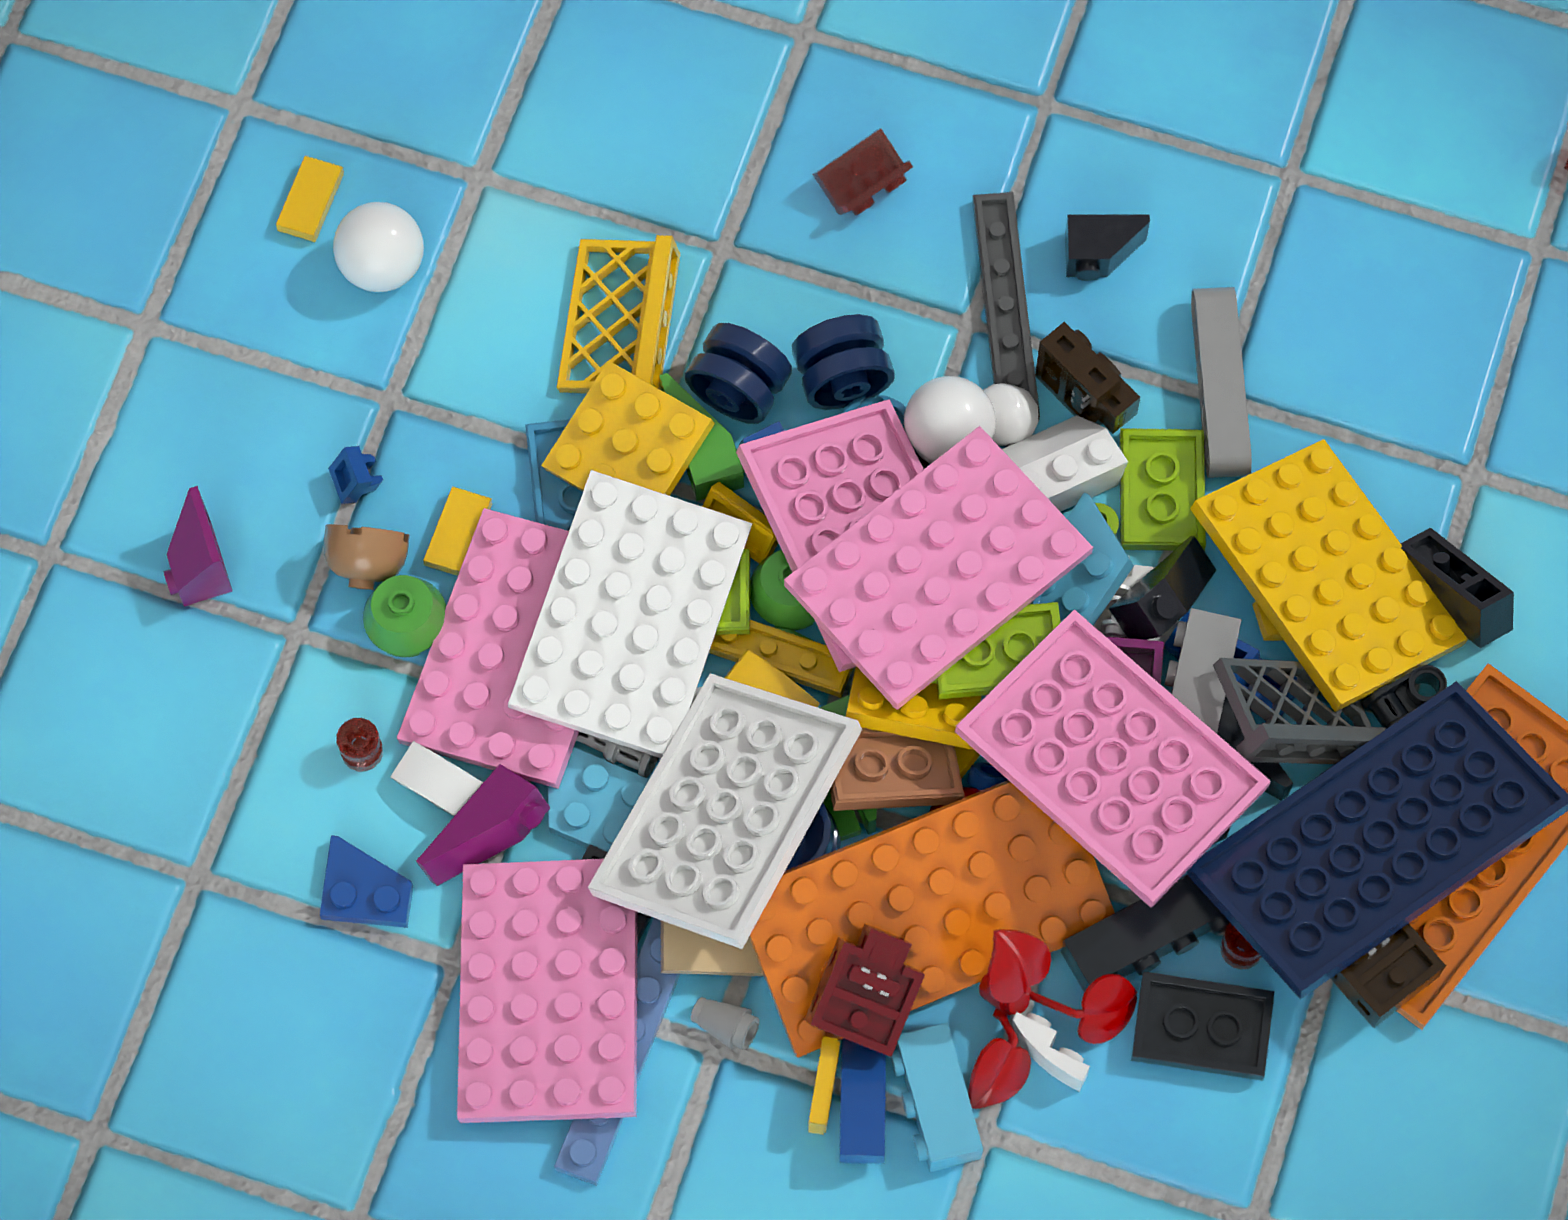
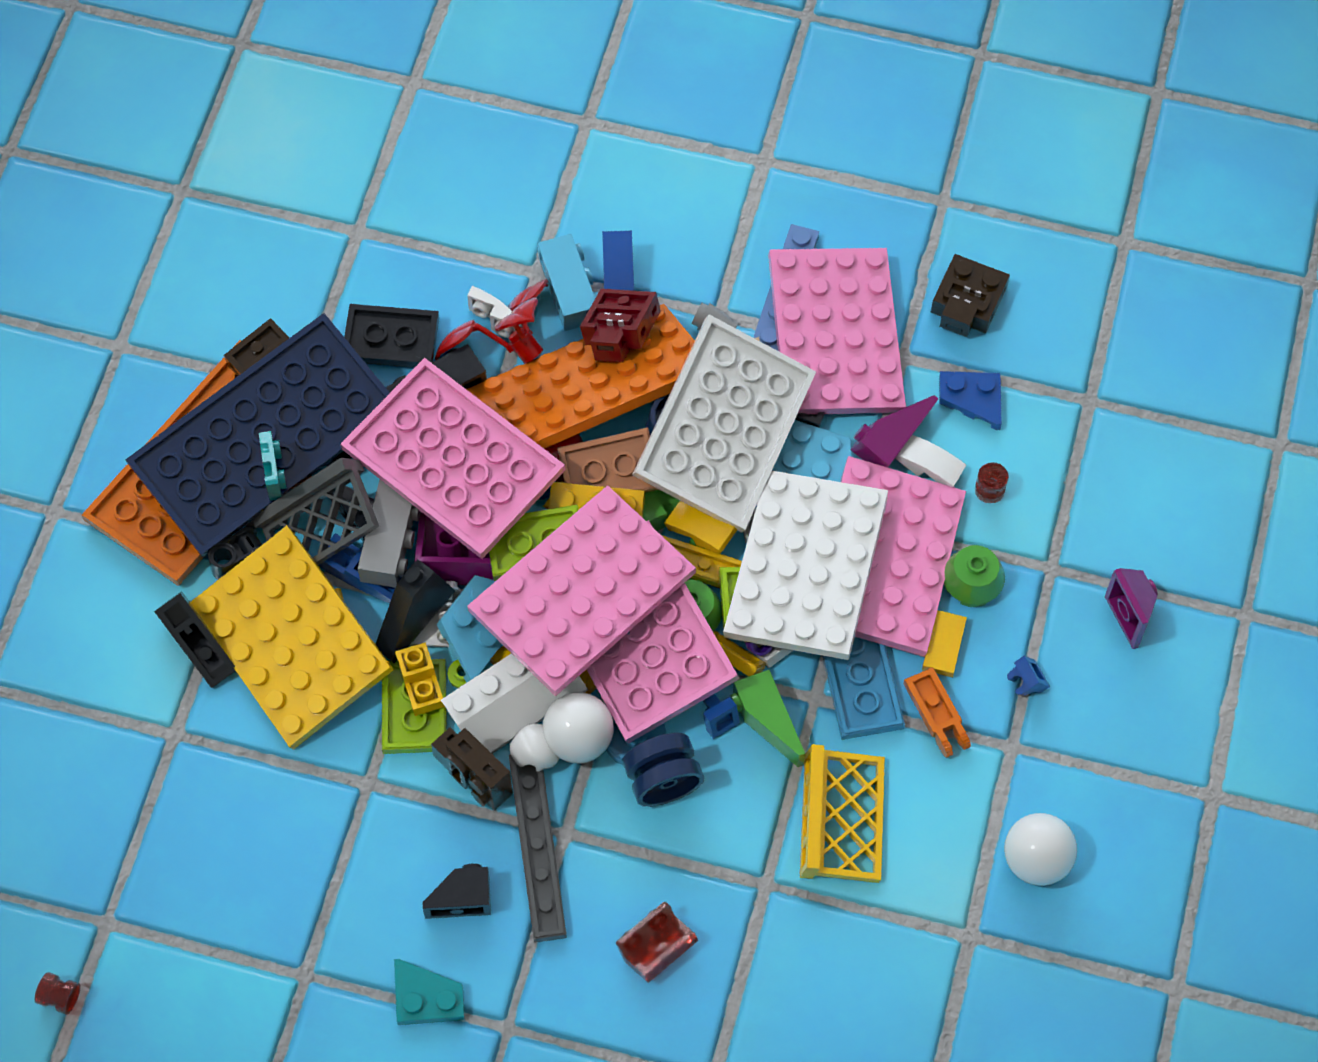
camera: 175 degrees right, 5 degrees down
(310, 198) = (1104, 903): yellow tile -> none
(345, 1040) = (969, 296): none -> dark brown piece
(364, 553) = (1010, 614): medium nougat cylinder -> none
(482, 443) = (936, 709): none -> orange hinge
(628, 434) = (823, 700): yellow plate -> none
(738, 373) = (744, 756): dark blue wheel -> none
(824, 1085) = (646, 272): yellow tile -> none
(1144, 138) = (426, 996): none -> teal wing
(1154, 507) = (420, 679): none -> yellow slope
(1221, 382) = (367, 787): light grey beam -> none
(1365, 758) = (270, 452): none -> teal wing

